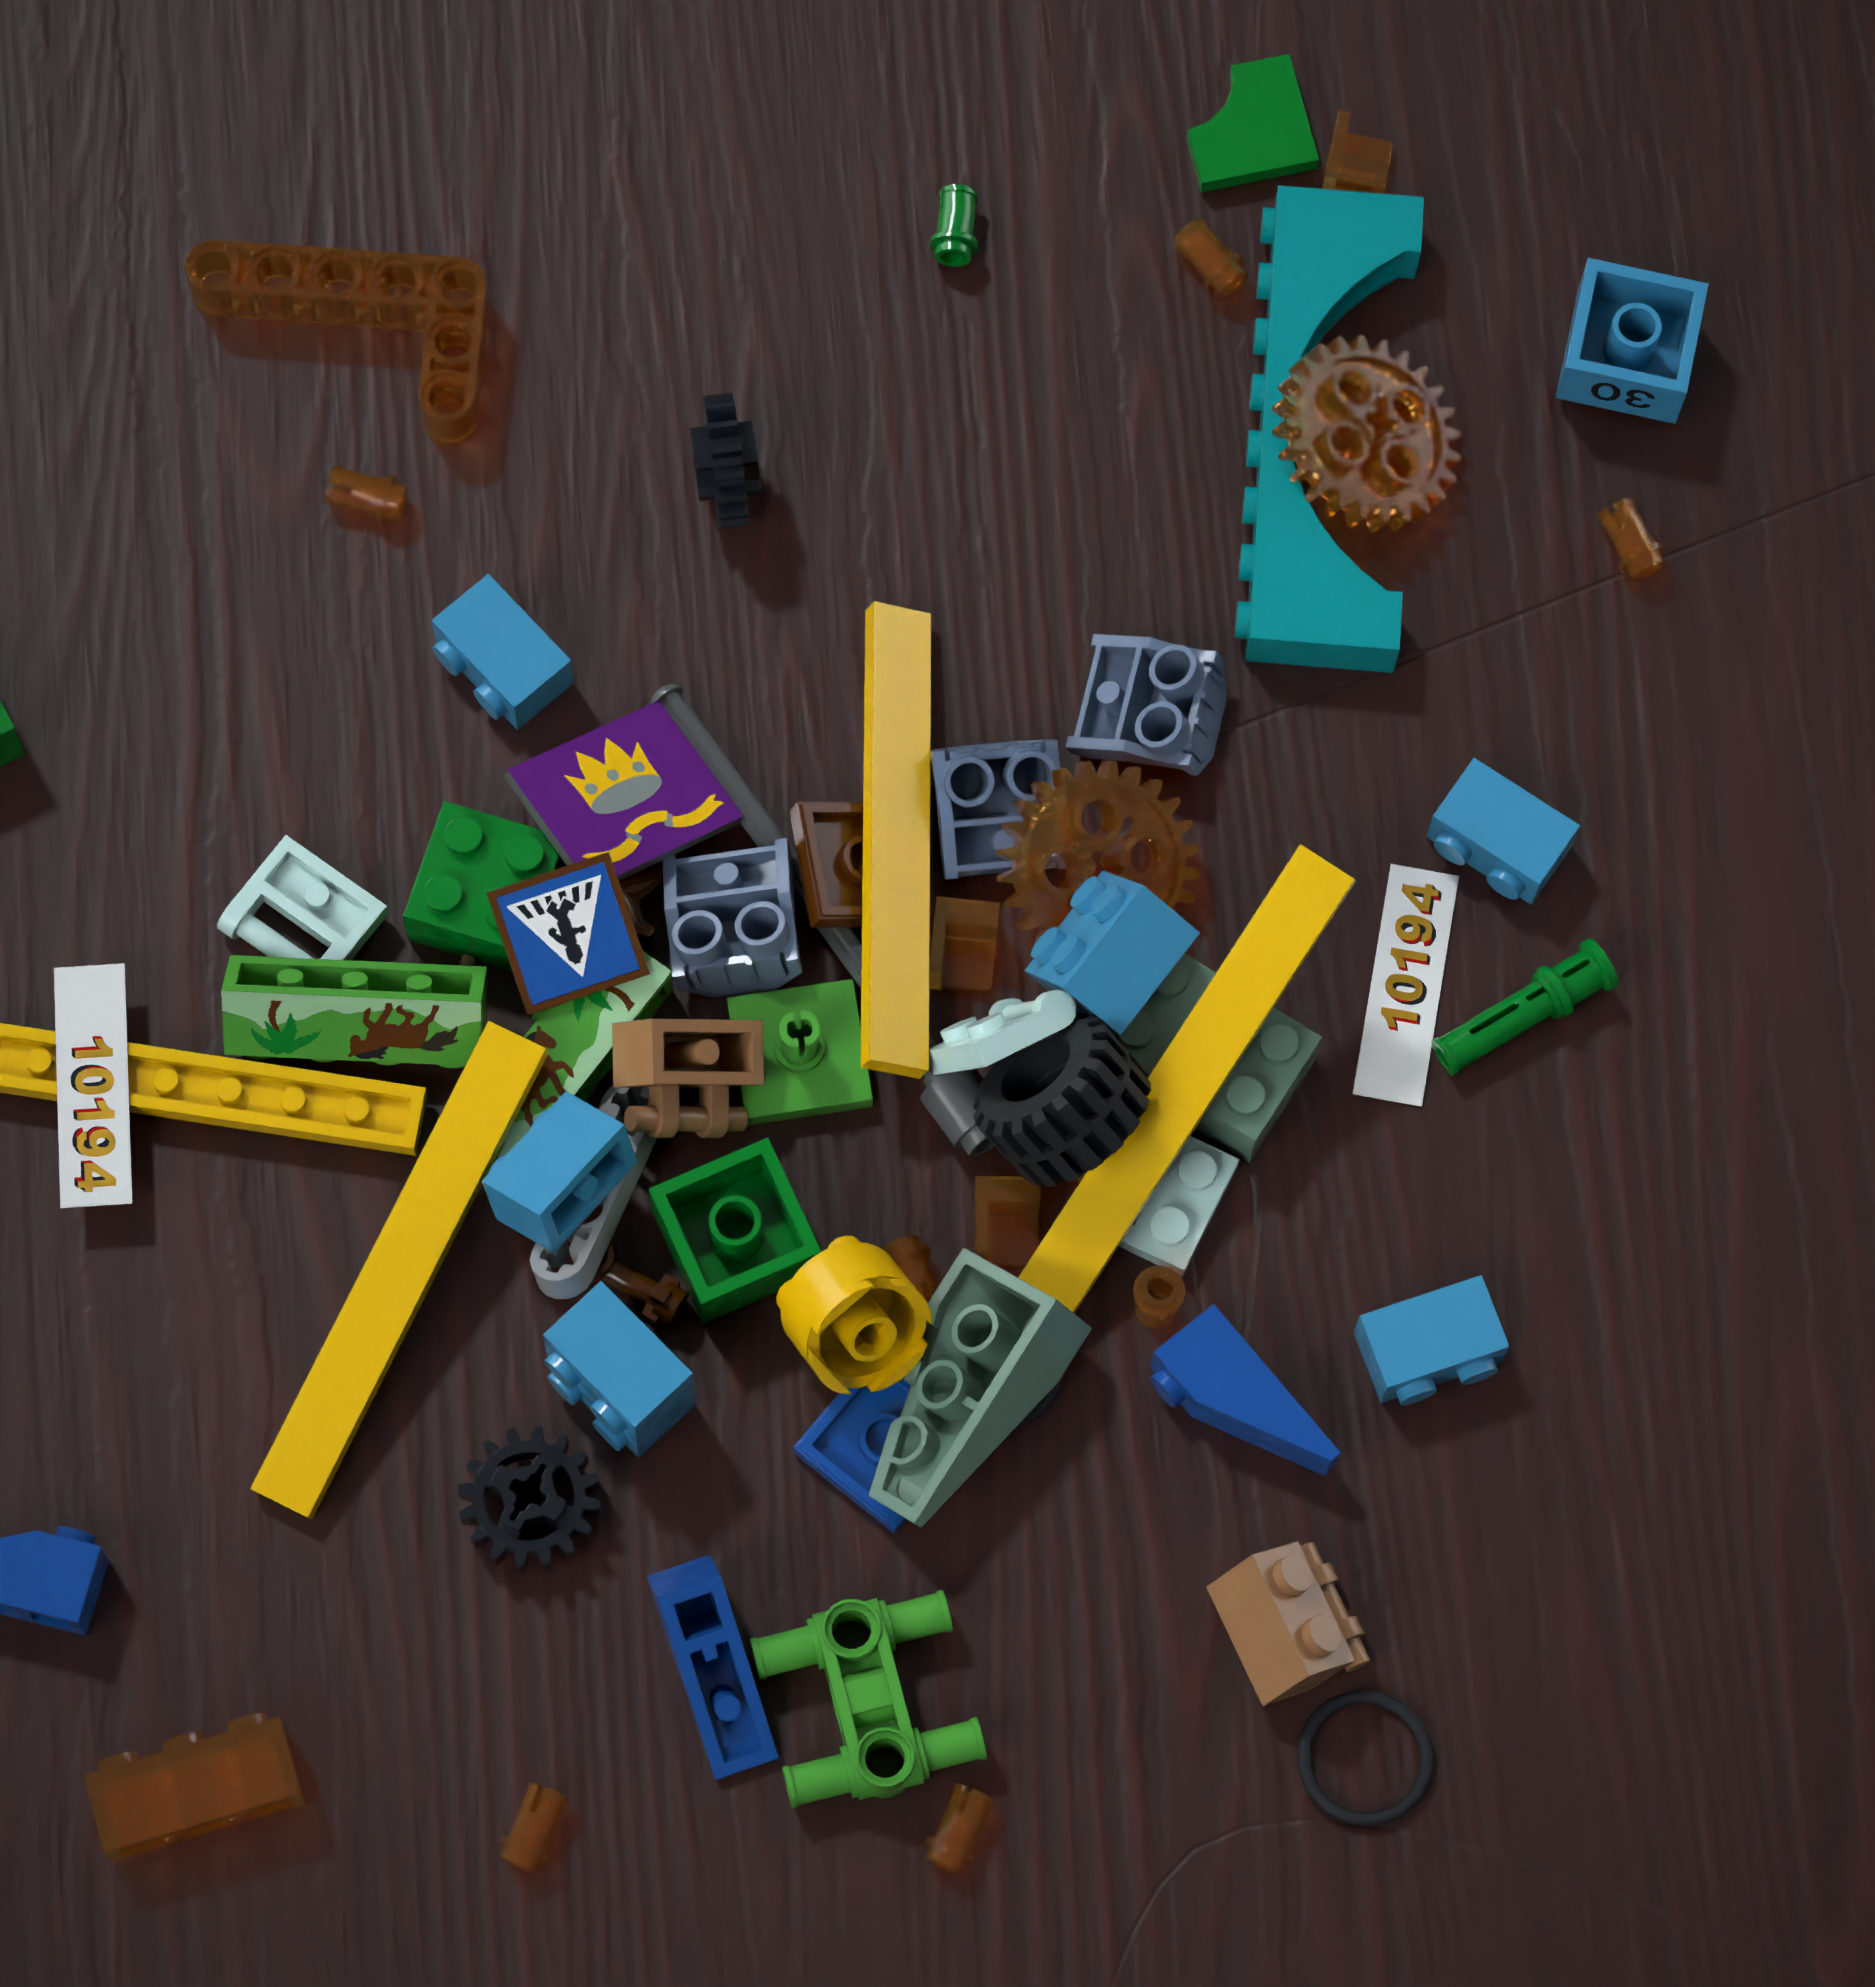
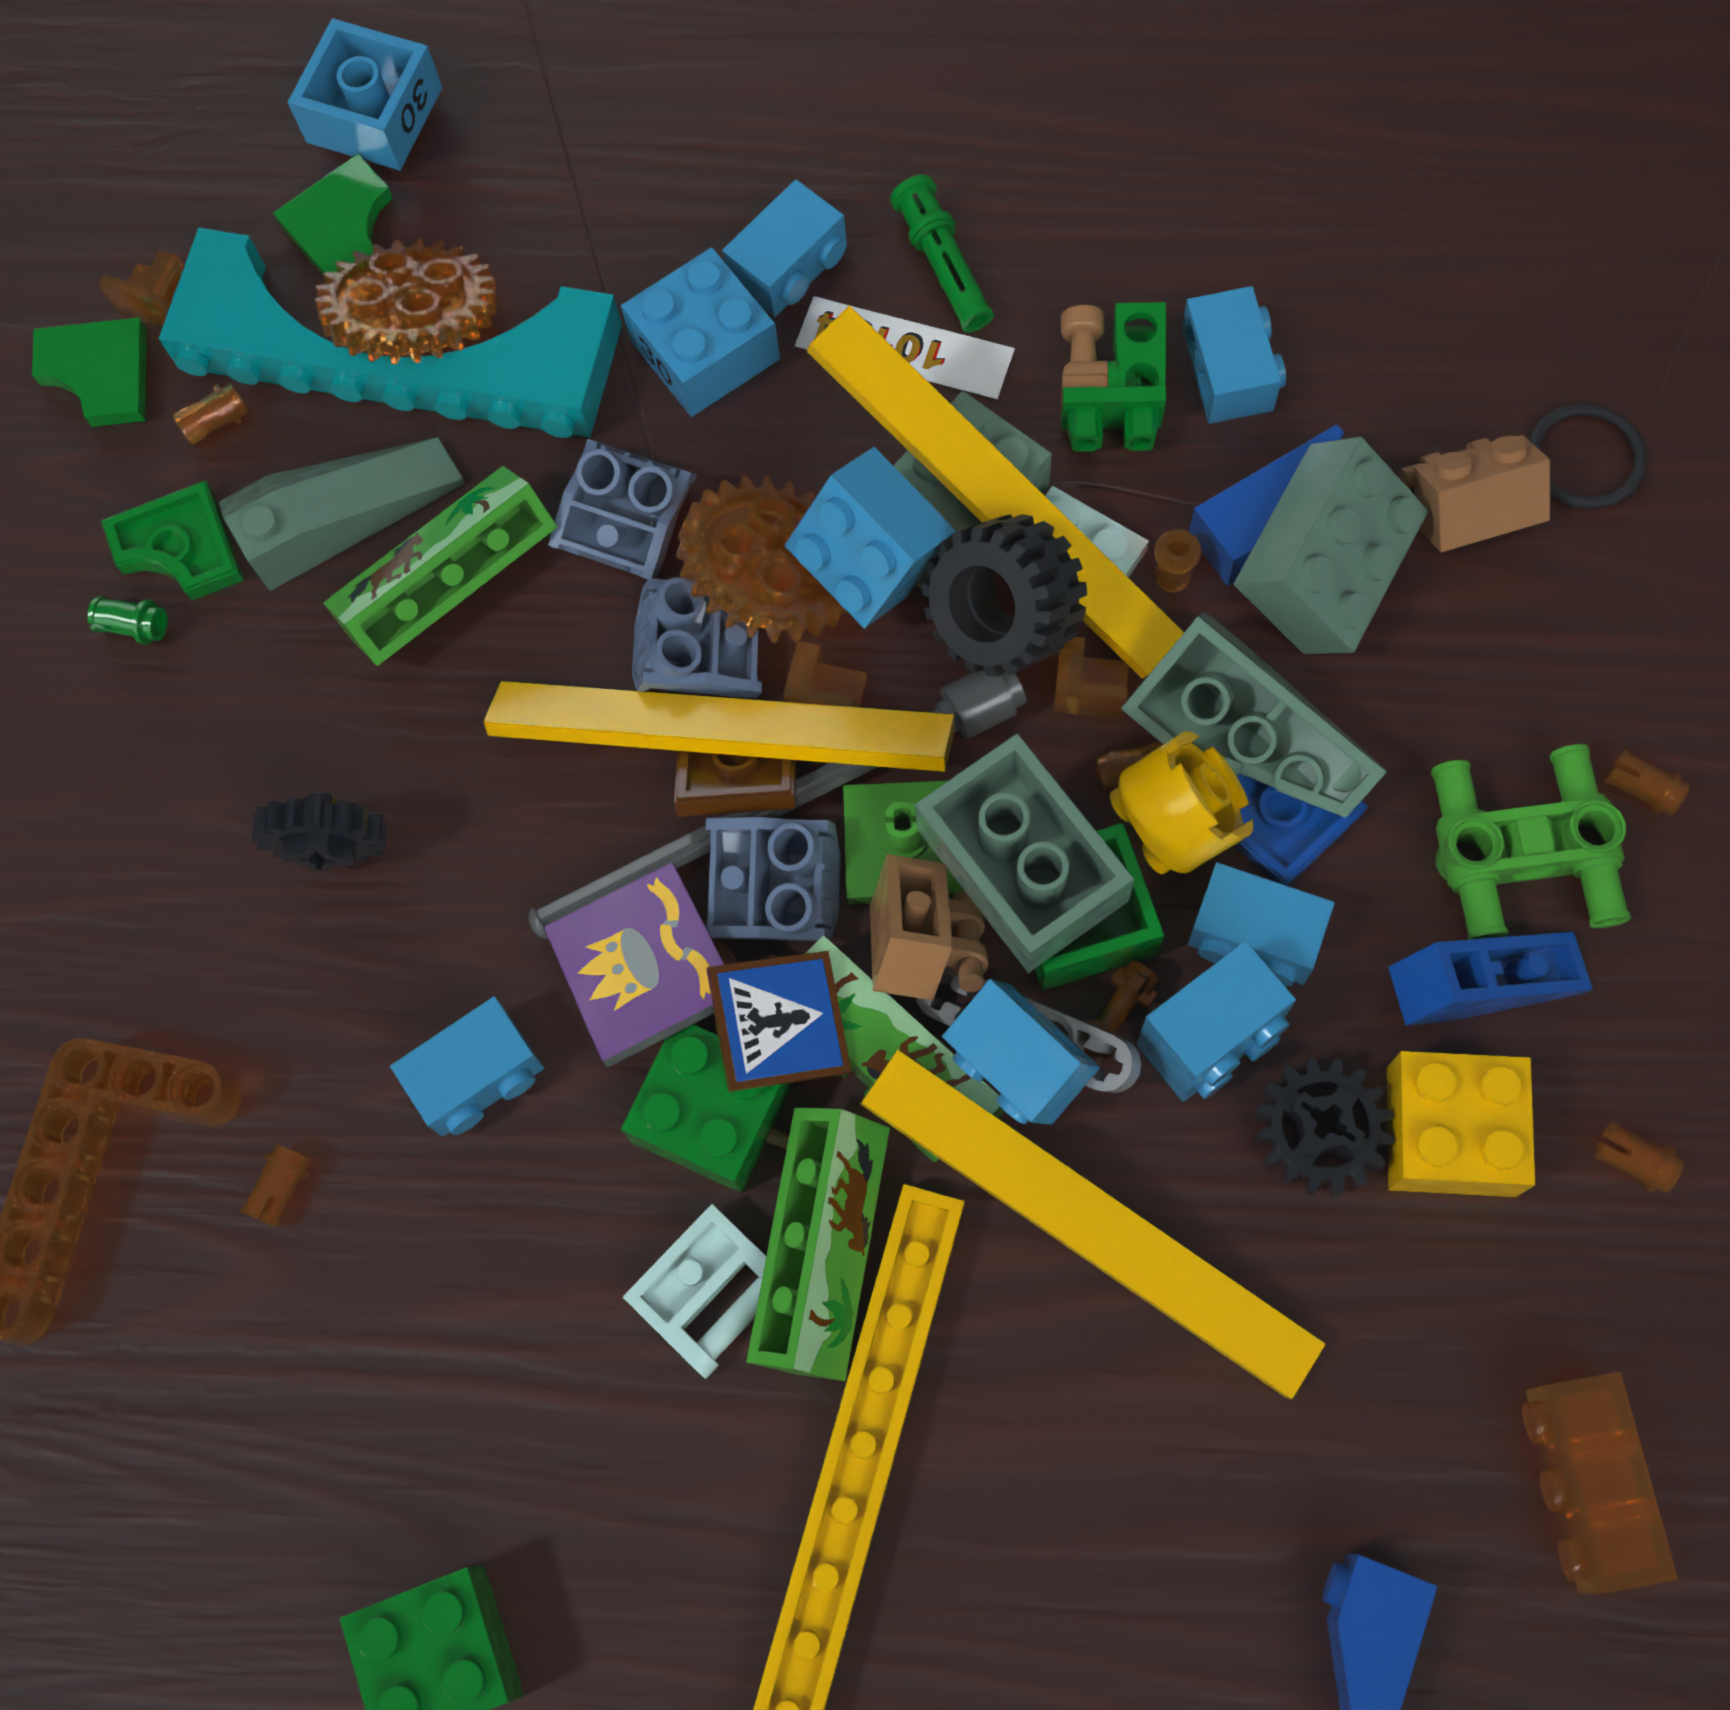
camera: 70 degrees left, 0 degrees up
(92, 1086) = (861, 1521): white sticker -> none
(544, 1633) = (1460, 1124): none -> yellow brick
(741, 1419) = (1273, 918): none -> dark azure brick
(758, 1138) = (1023, 852): none -> sand green brick
(1003, 1032) = (949, 641): light aqua plate -> none
(1049, 526) = (440, 564): none -> bright green brick
(1060, 257) = (178, 538): none -> green tile
(1115, 395) = (320, 510): none -> sand green wedge
(1180, 1453) = (1331, 546): none -> sand green brick
(1371, 1226) = (1116, 392): none -> green hips
(1376, 754) = (701, 331): none -> dark azure brick
(1482, 340) = (336, 214): none -> green tile
(1632, 540) = (540, 127): clear orange pin -> none

